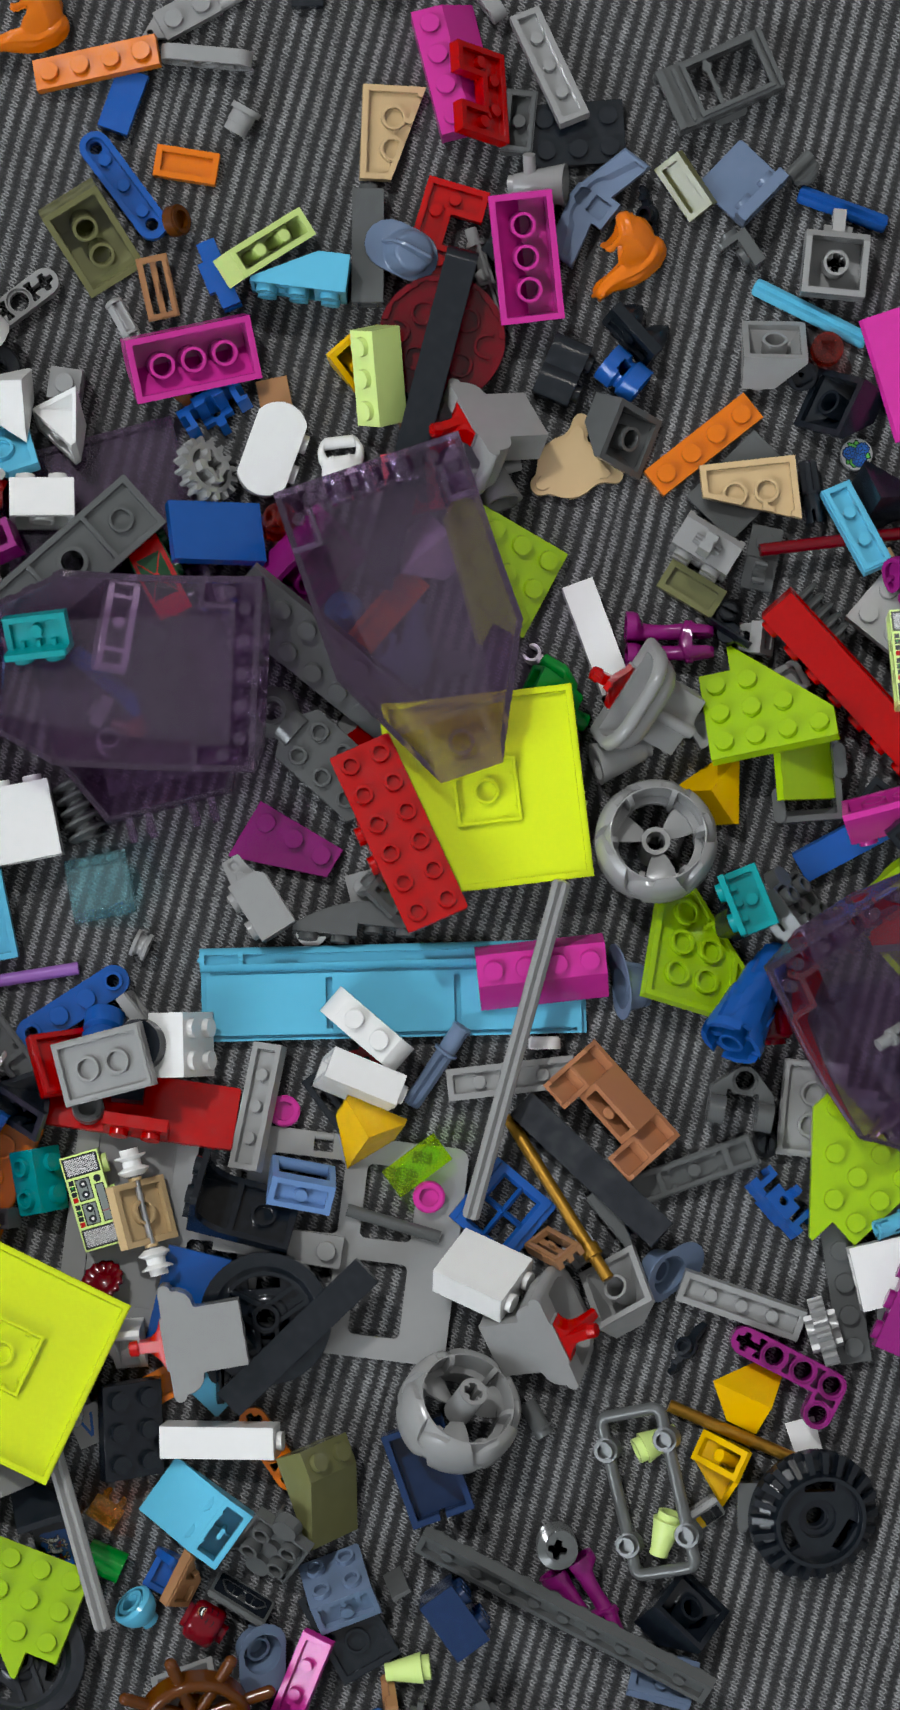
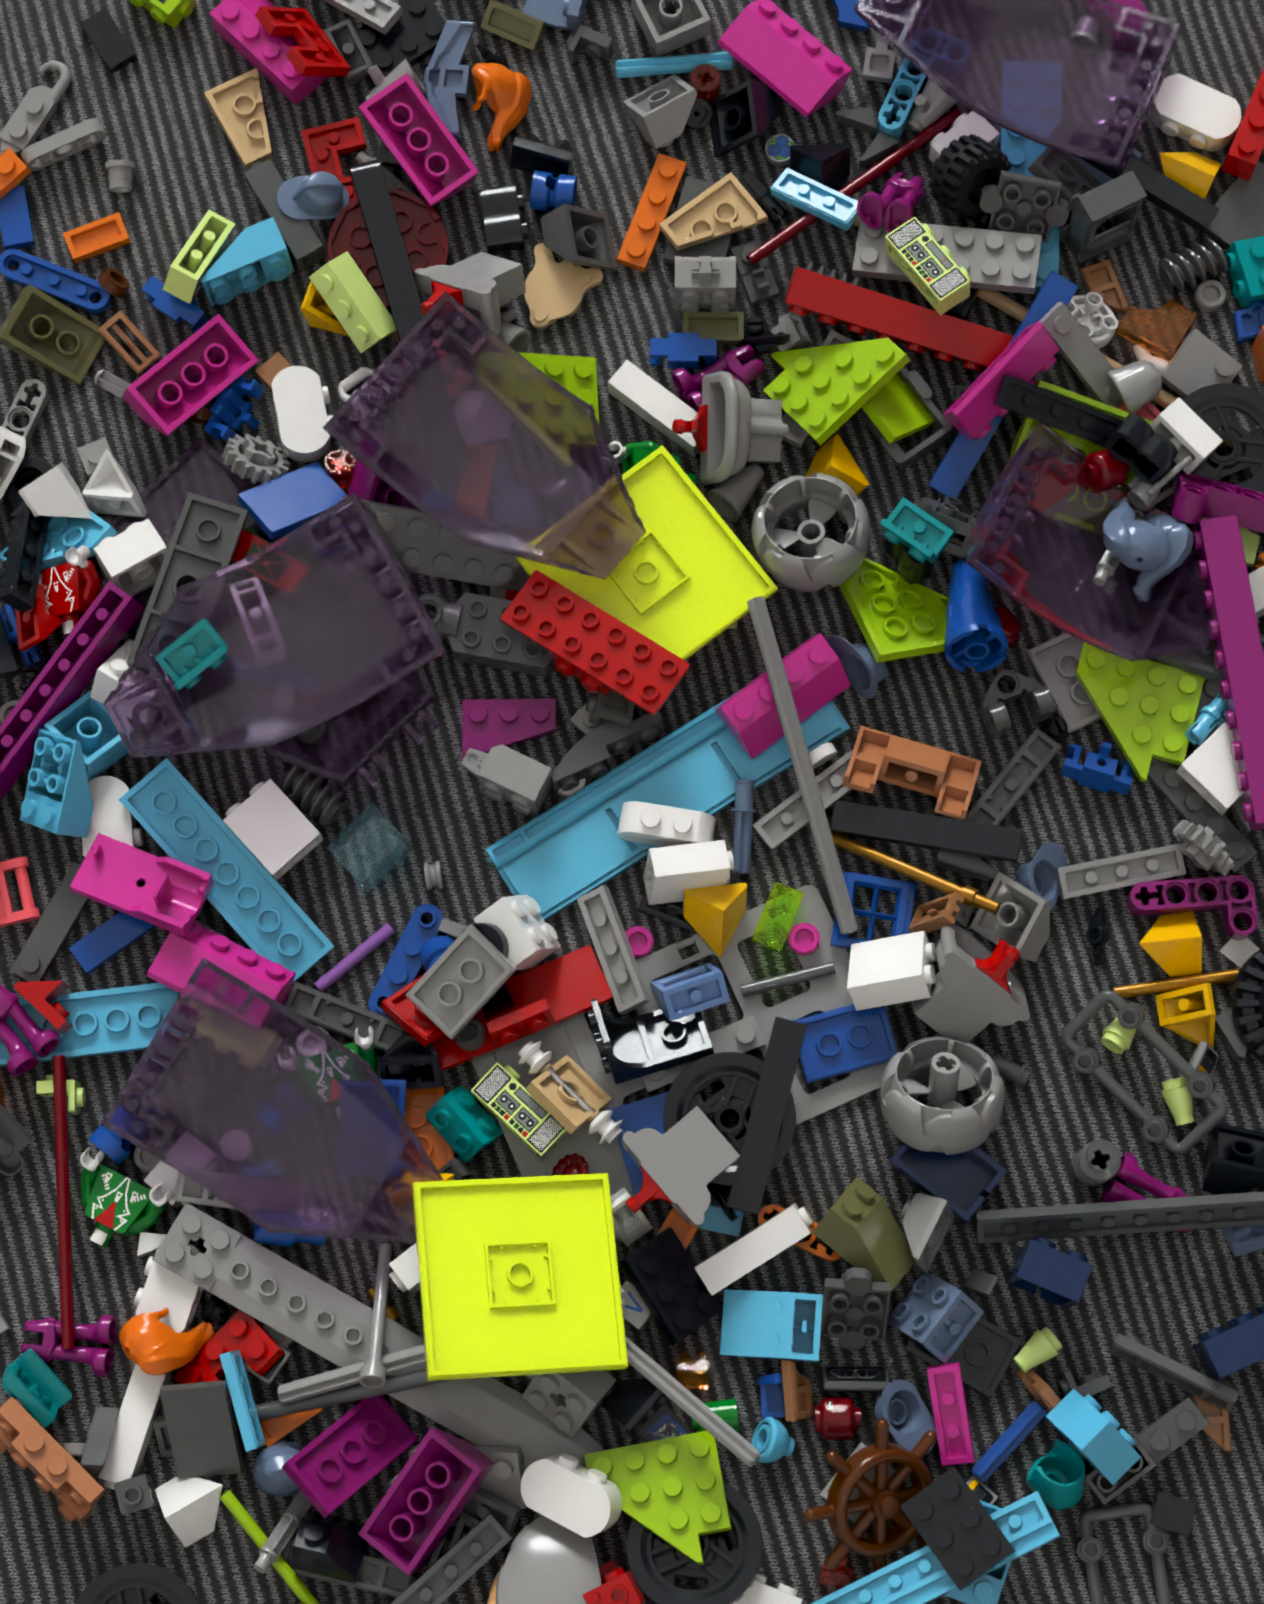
camera: 30 degrees left, 10 degrees down
(375, 1511) = (926, 1225): none -> light grey slope
(407, 1308) = (845, 1042): none -> blue tile
(649, 596) = (683, 350): none -> blue piece

